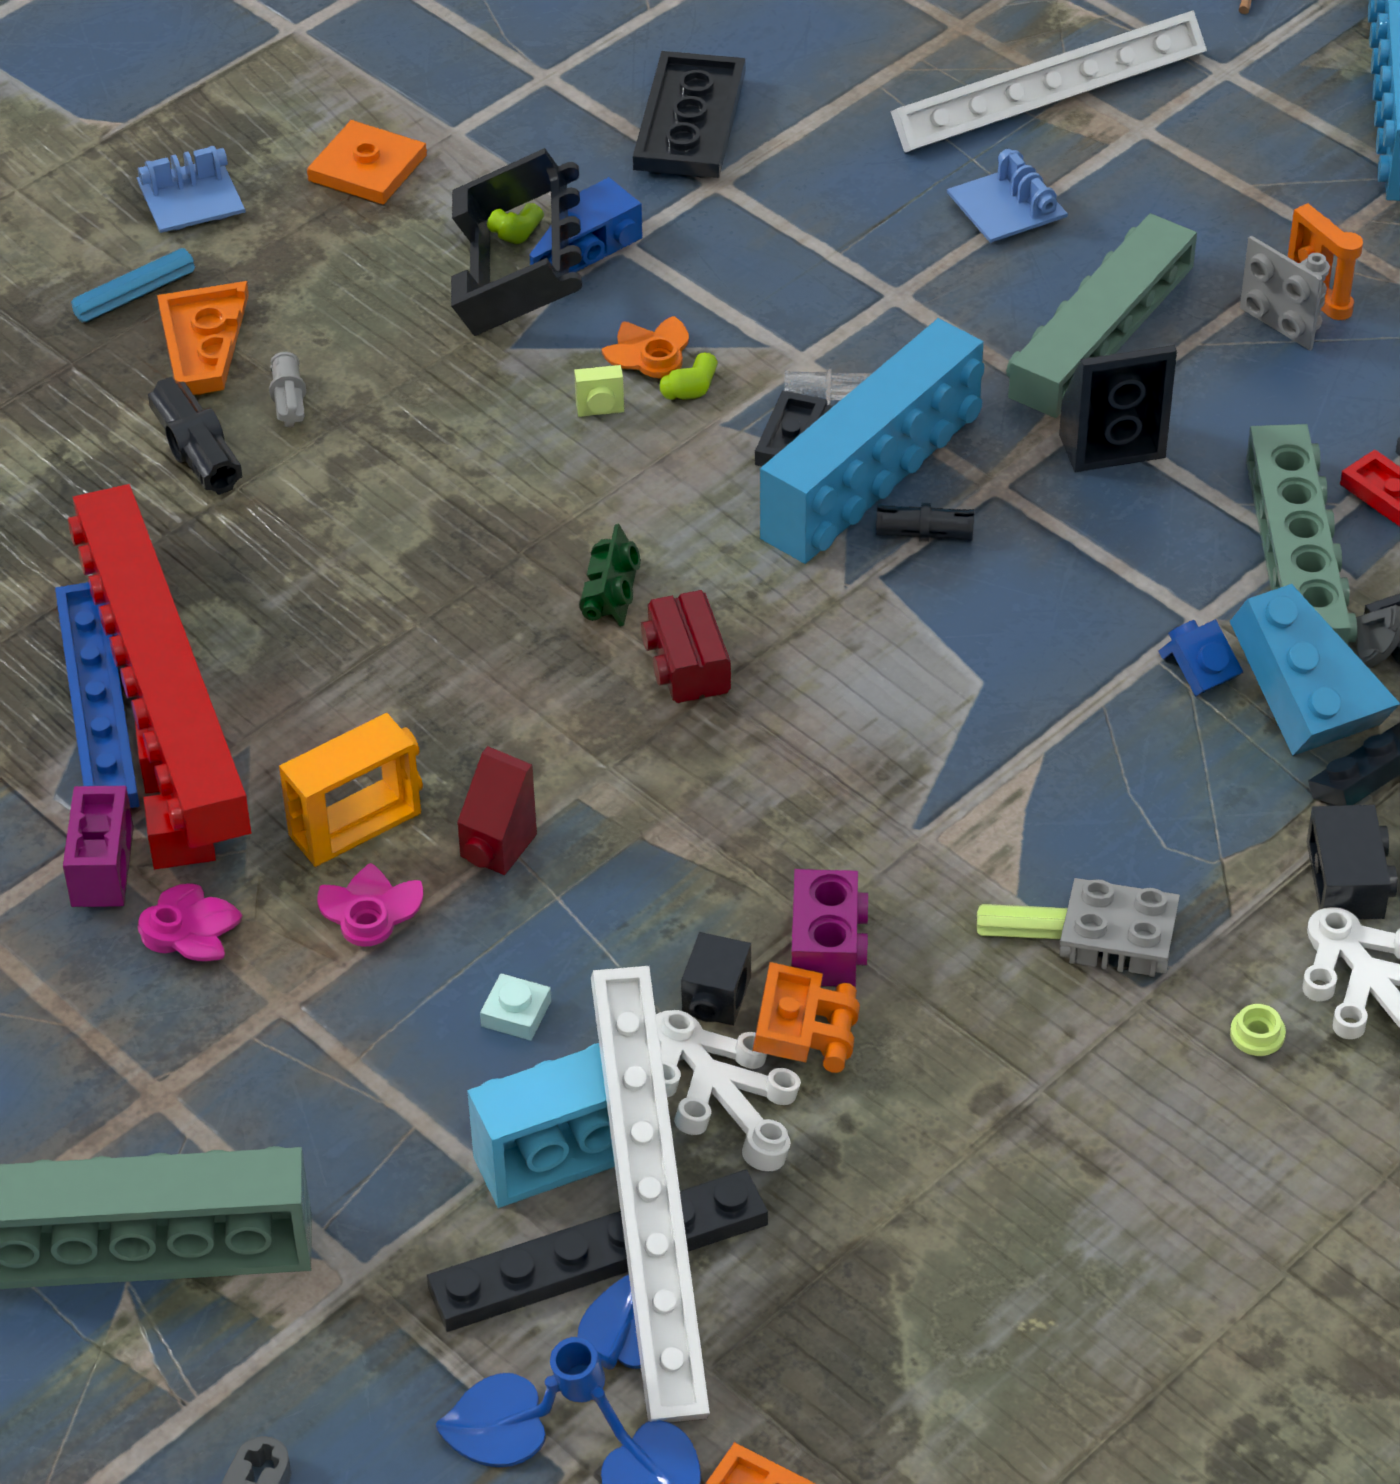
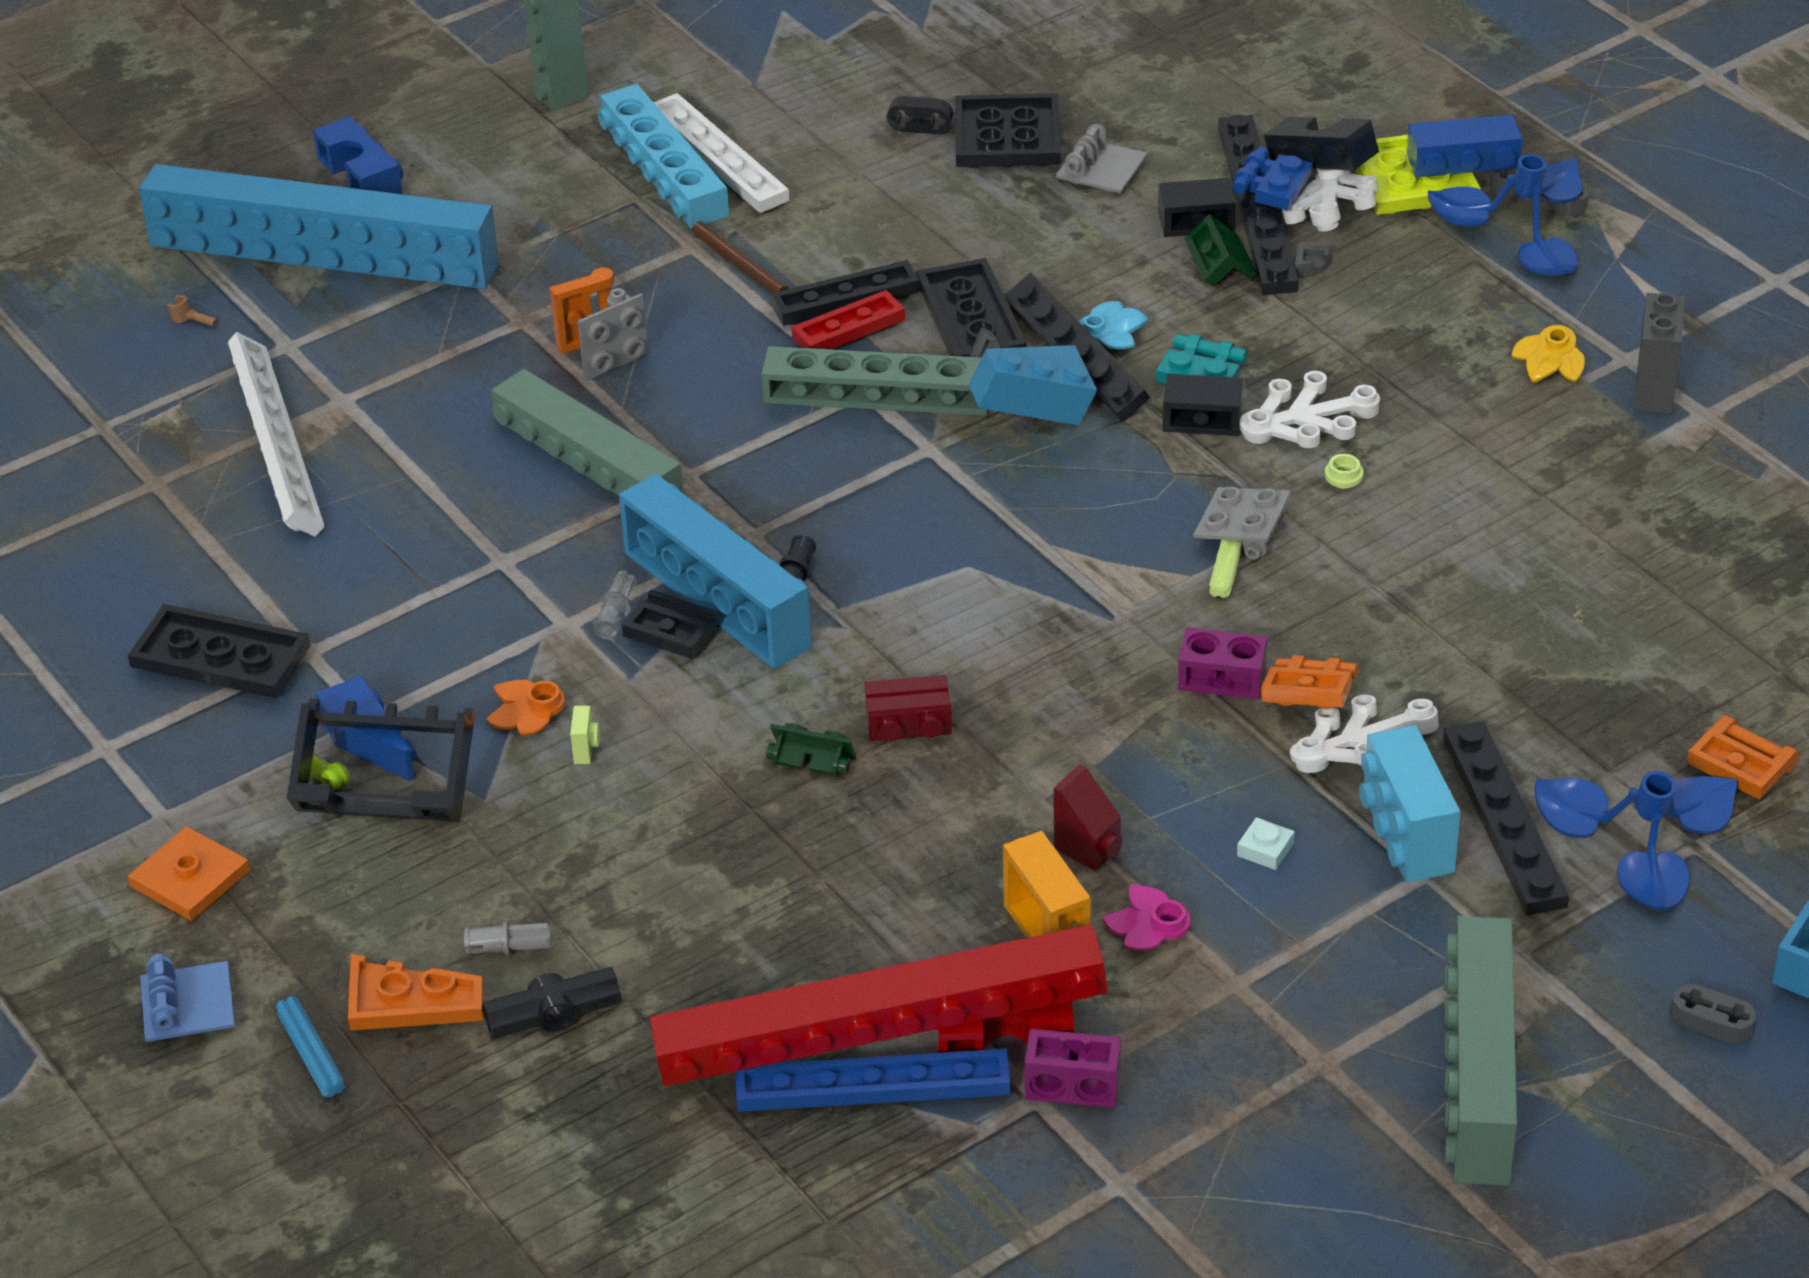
camera: 80 degrees left, 5 degrees down
(188, 923) = (1151, 1031): dark pink plate -> none
(649, 1196) = (1492, 739): white plate -> none
(690, 382) = (579, 681): lime arm -> none
(716, 978) = (1265, 724): black brick -> none
(1008, 199) = (415, 479): medium blue hinge -> none
(1118, 408) = (723, 435): black slope -> none
(1202, 655) = (979, 441): blue bracket -> none

